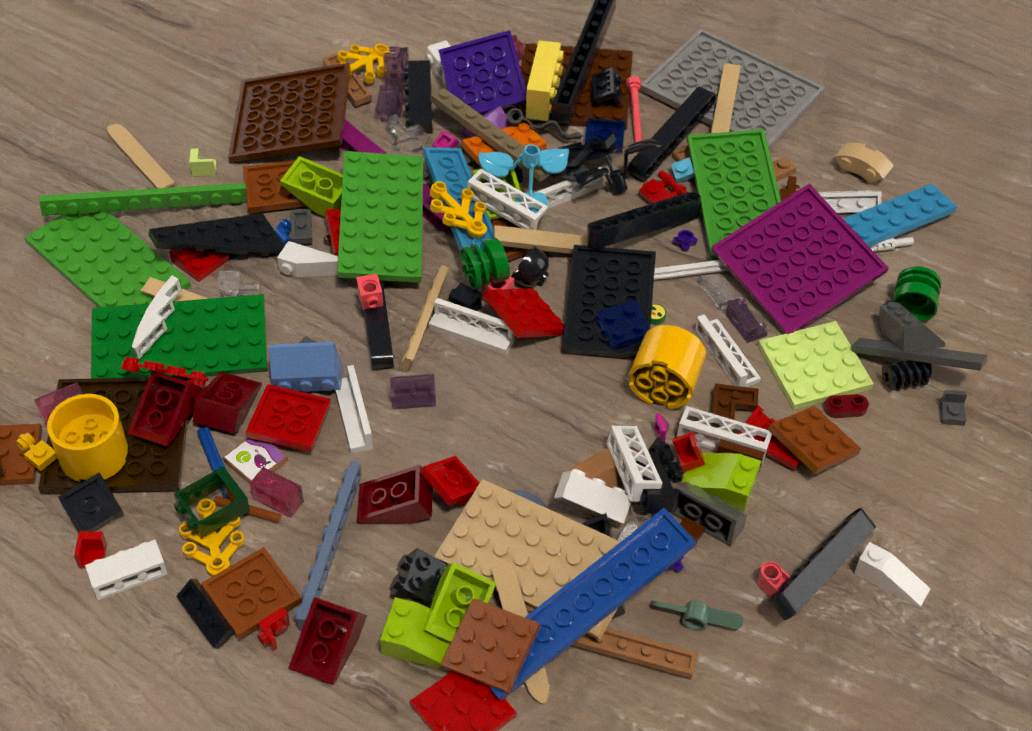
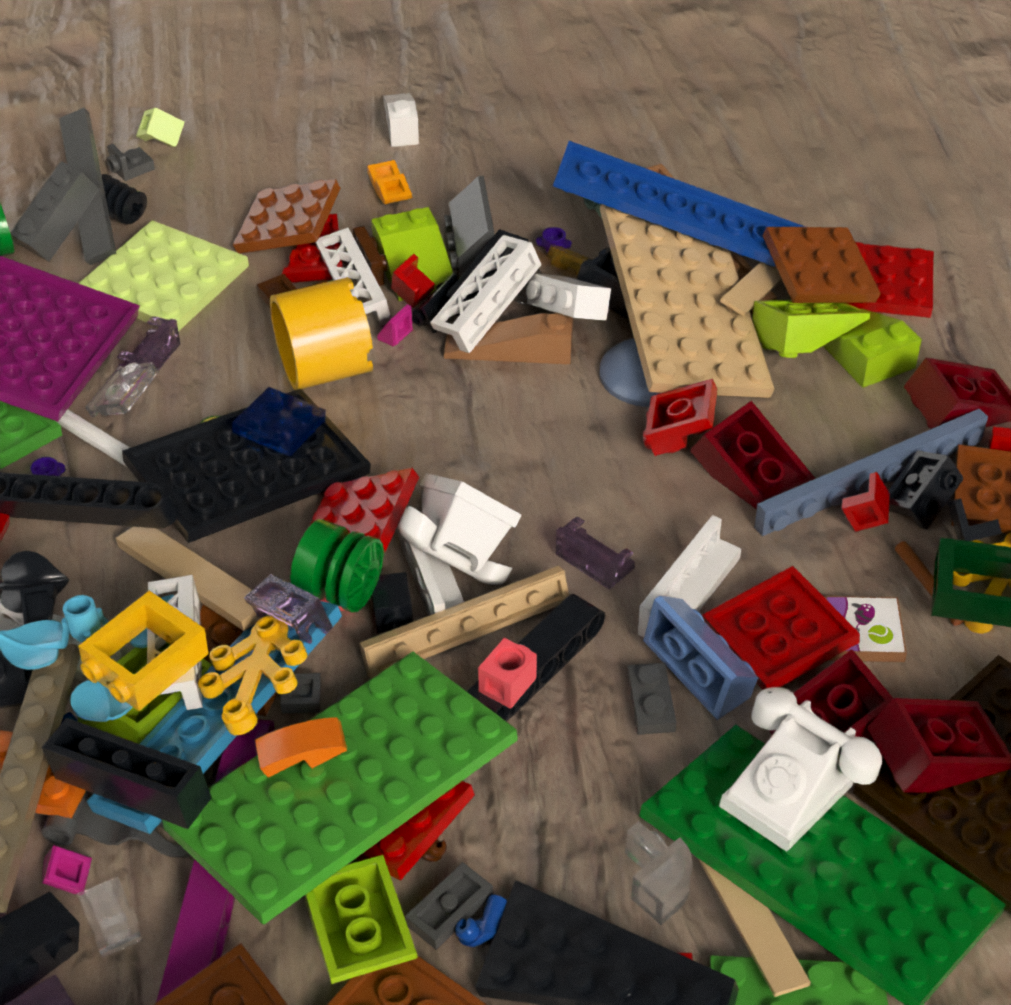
camera: 130 degrees left, 5 degrees down
(153, 321) = (829, 878): white slope -> none
(195, 377) = (898, 772): red plant -> none
(210, 342) = (797, 770): none -> white piece
(211, 451) = (920, 656): blue axle -> none
(243, 530) = (971, 532): none -> black panel
(276, 492) = (882, 557): clear pink brick -> none
(293, 546) = (924, 487): none -> black bracket
(306, 261) = (516, 832): white slope -> none
(308, 516) = (868, 508): none -> red panel
(402, 199) = (308, 741): none -> orange slope
(417, 576) = (816, 381): black bracket -> none
(443, 141) = (127, 772): none -> black brick
(448, 246) = (306, 695): none -> dark grey plate
(474, 231) = (289, 606): none -> clear purple hinge
(475, 337) = (459, 527): none -> white piece
(486, 181) = (186, 649): none -> yellow window
(532, 268) = (260, 557): black cylinder -> none
(724, 355) = (220, 342): white fence -> none
(770, 585) = (497, 167): coral piece -> none
(809, 520) = (388, 182): none -> light orange slope
(821, 564) = (435, 144): black beam -> none
(848, 406) = (204, 227): dark red plate -> none
(979, 440) = (160, 126): none -> yellowish green panel

